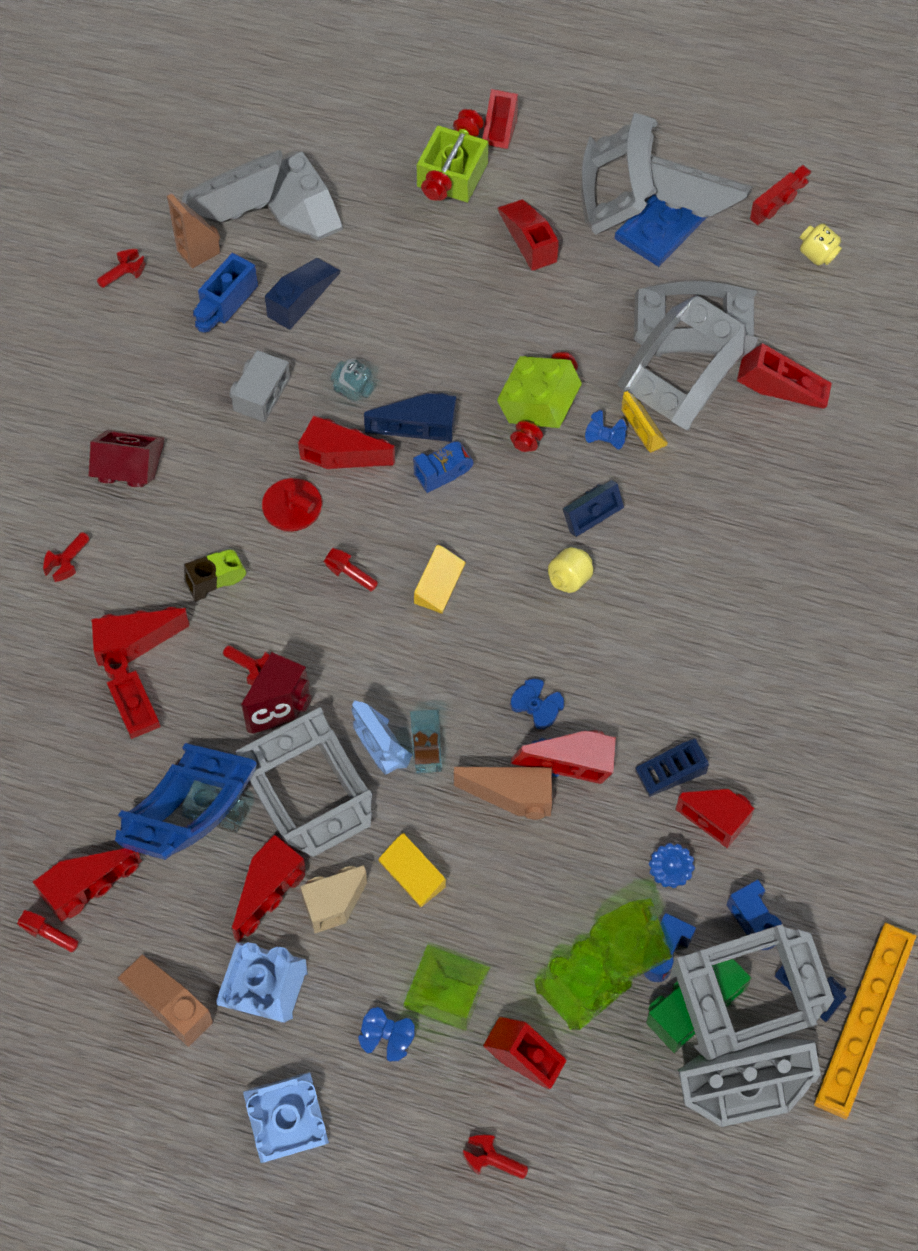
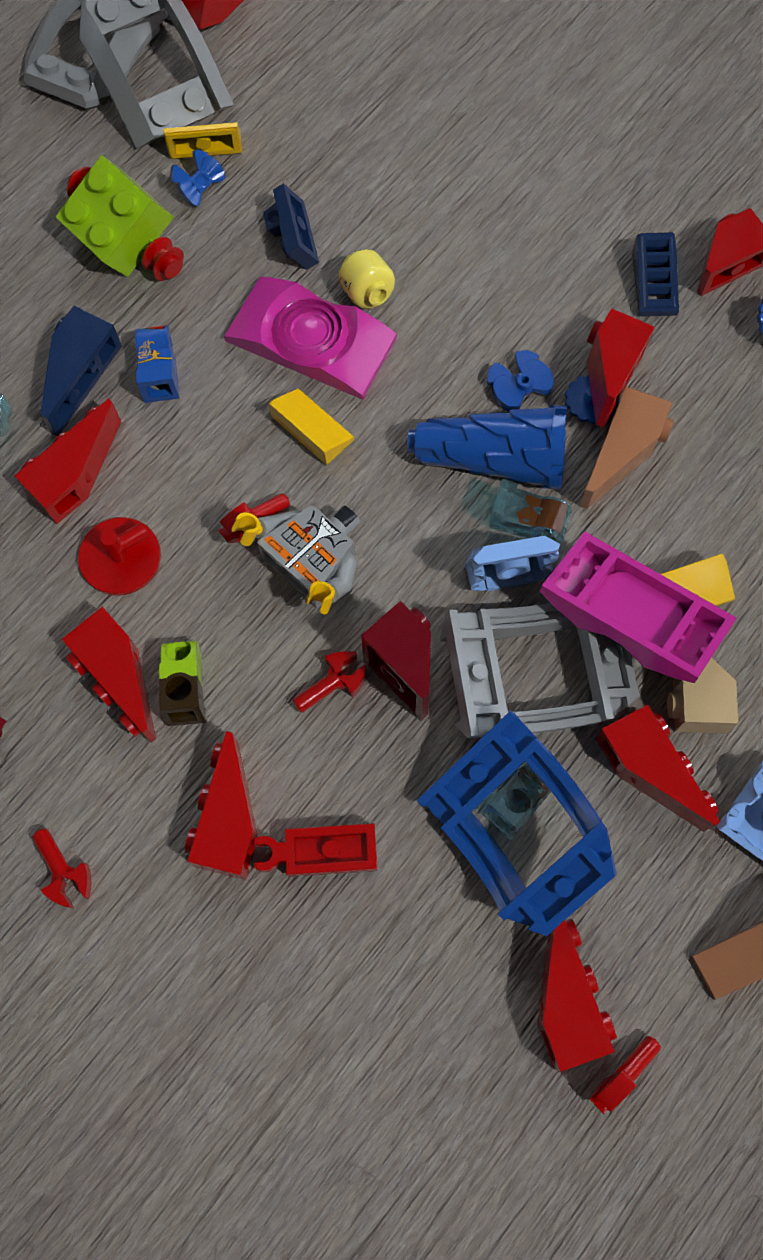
camera: 65 degrees left, 10 degrees up
(212, 528) = (115, 663): none -> red slope
(336, 611) = (306, 550): none -> torso
(369, 823) = (637, 608): none -> dark pink slope
(471, 713) = (510, 445): none -> blue cone
(511, 556) = (312, 335): none -> dark pink slope

